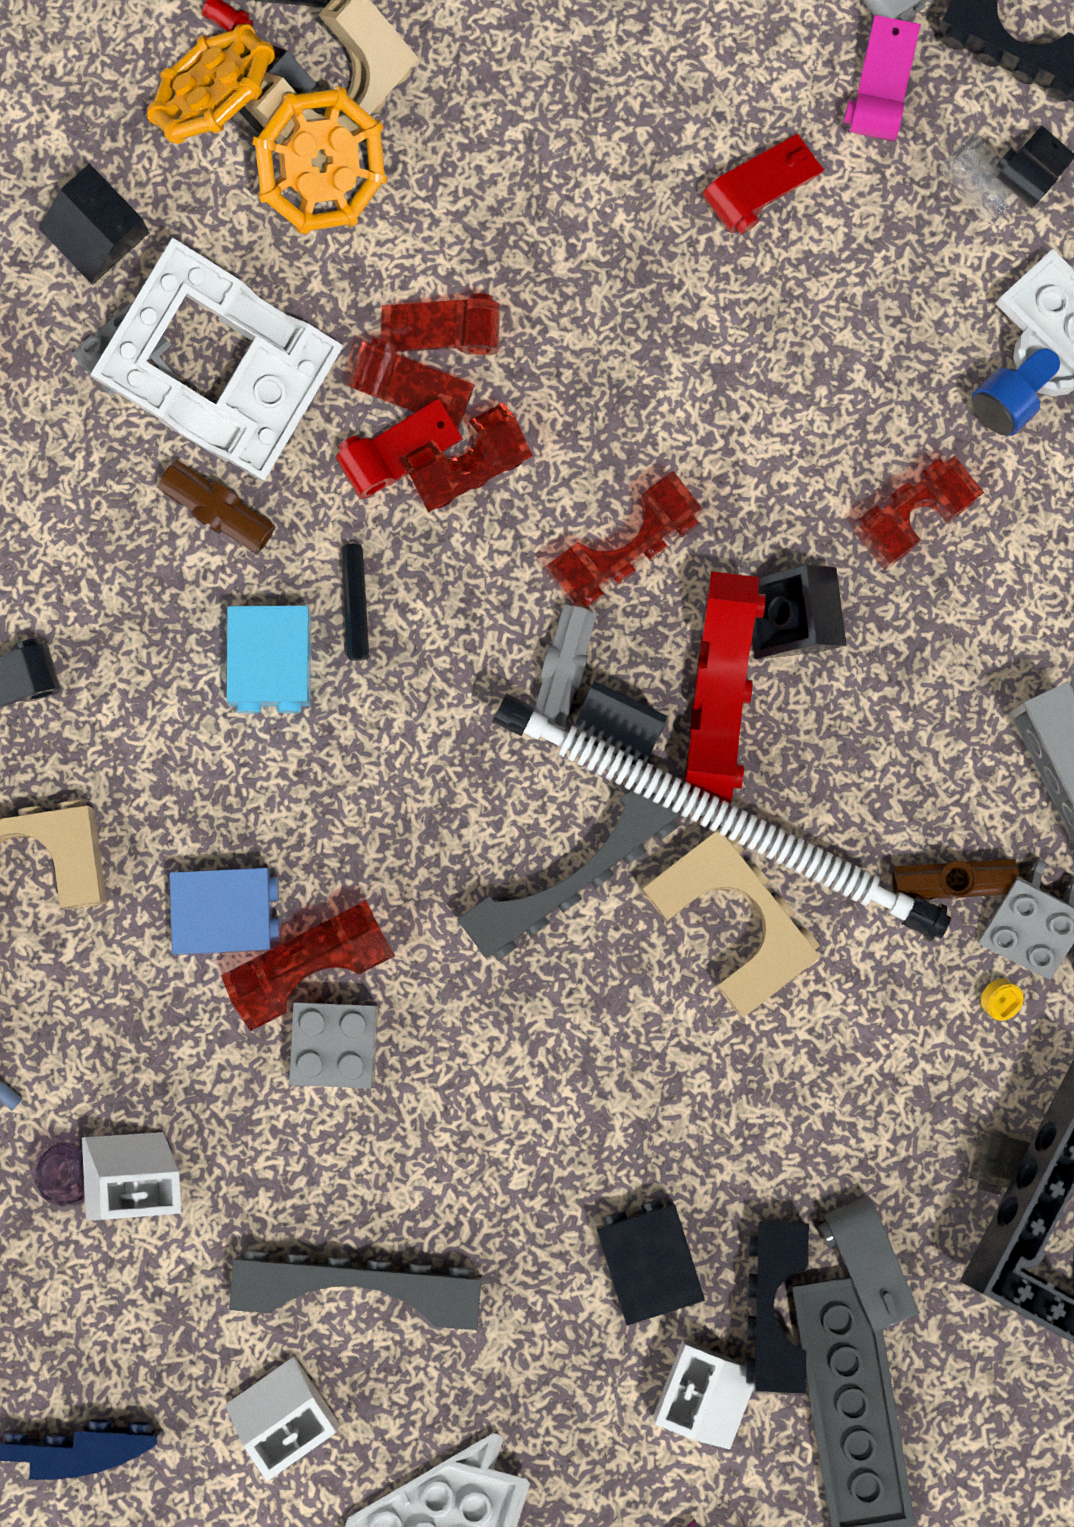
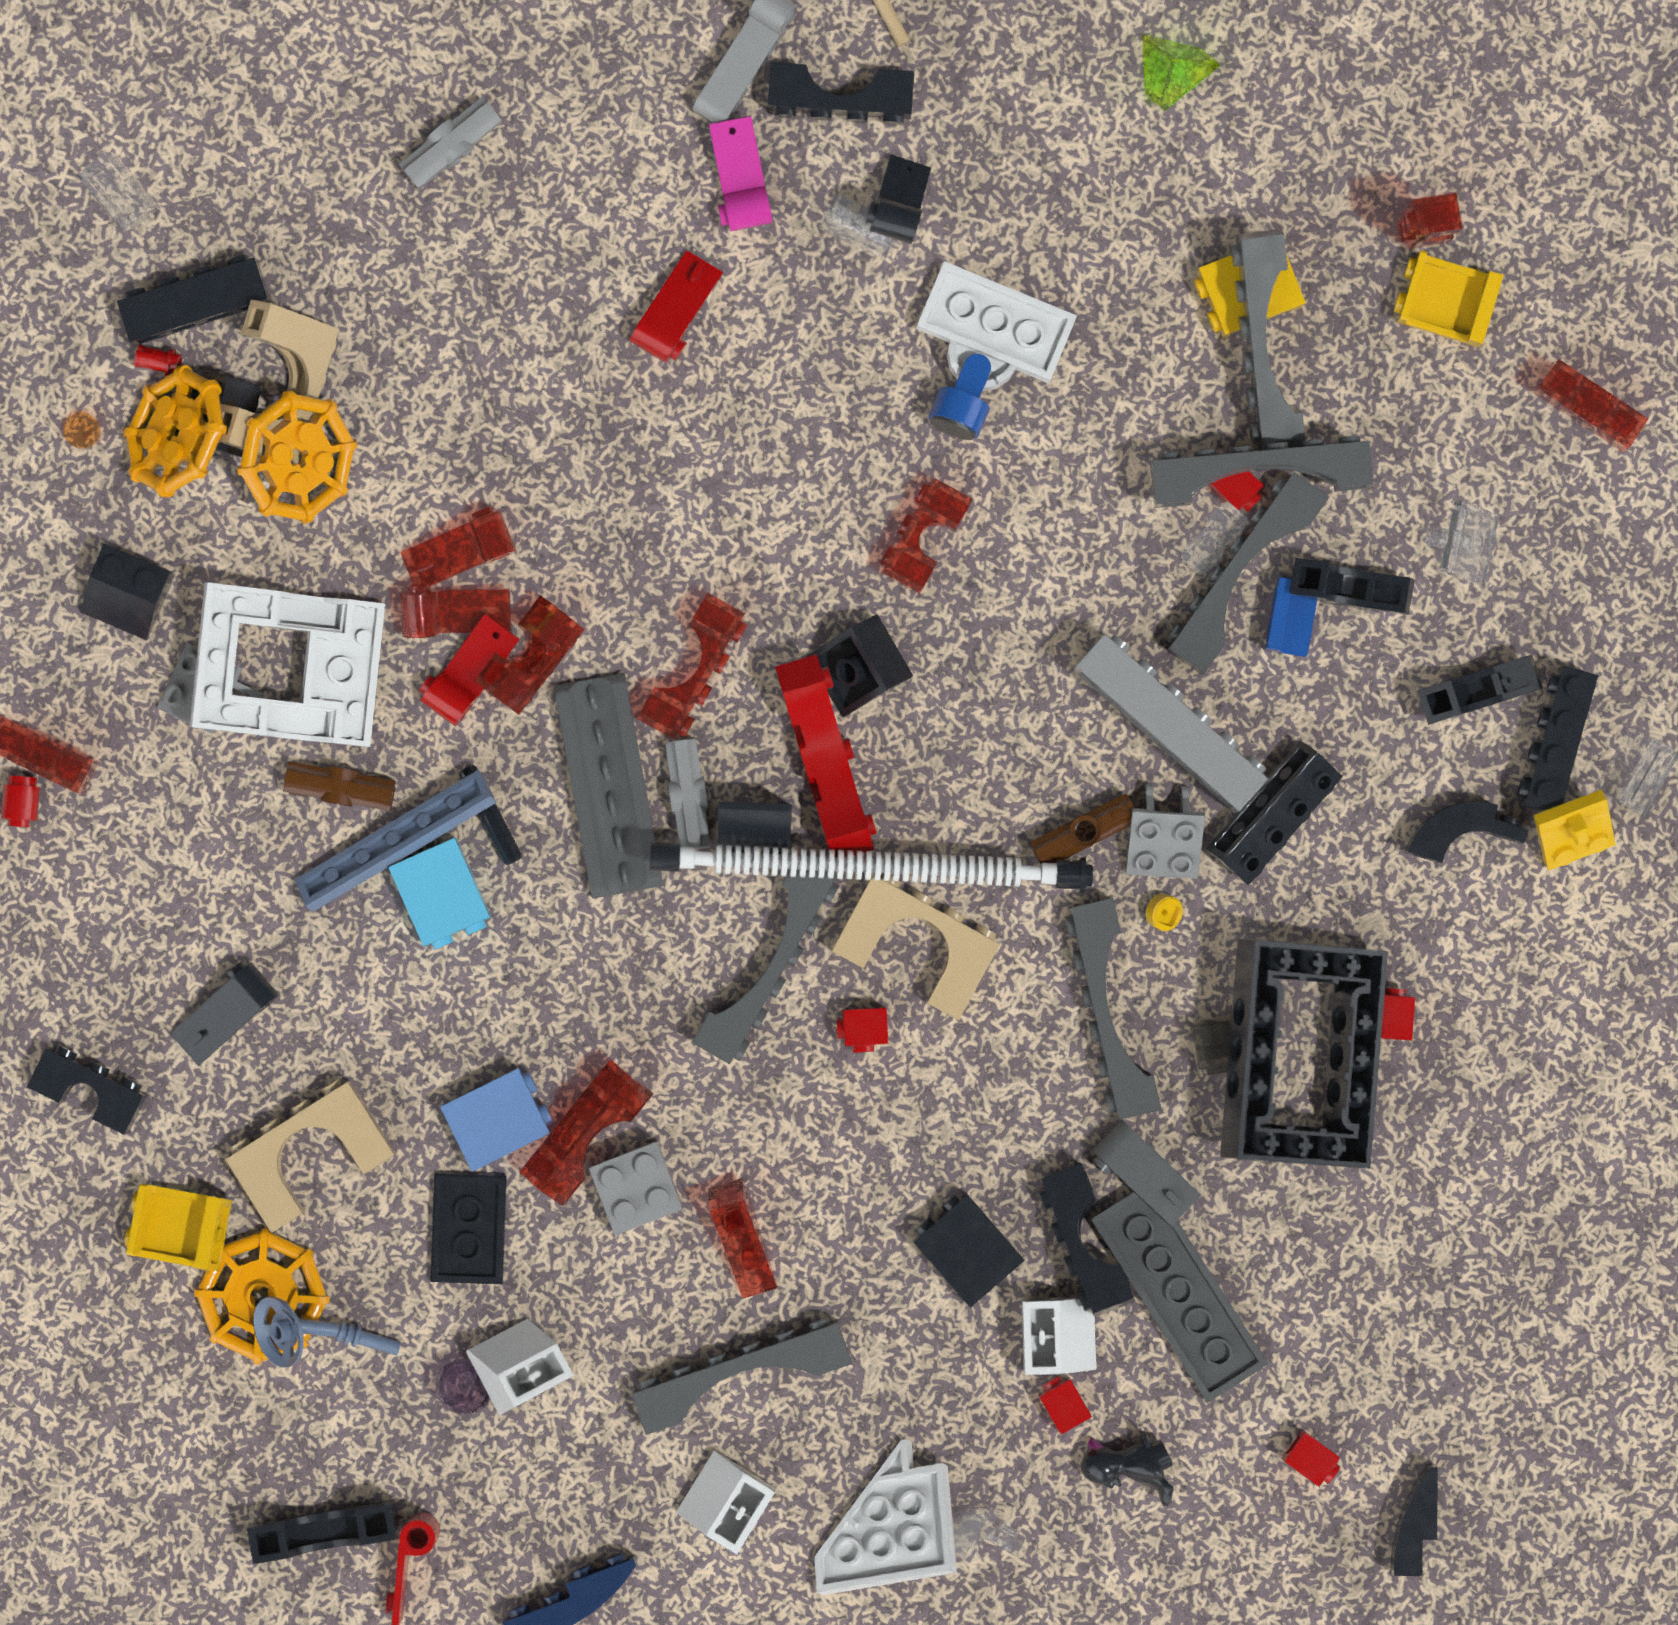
camera: 25 degrees left, 5 degrees up
(122, 55) = (82, 430): none -> clear orange tile
(144, 1012) = (468, 1228): none -> black tile
(247, 584) = (395, 841): none -> sand blue plate
(419, 1145) = (741, 1237): none -> clear red slope
(486, 623) = (607, 784): none -> dark grey plate
(640, 983) = (863, 1028): none -> red brick
(681, 1471) = (1064, 1403): none -> red brick
(891, 1167) = (1131, 1089): none -> dark grey arch

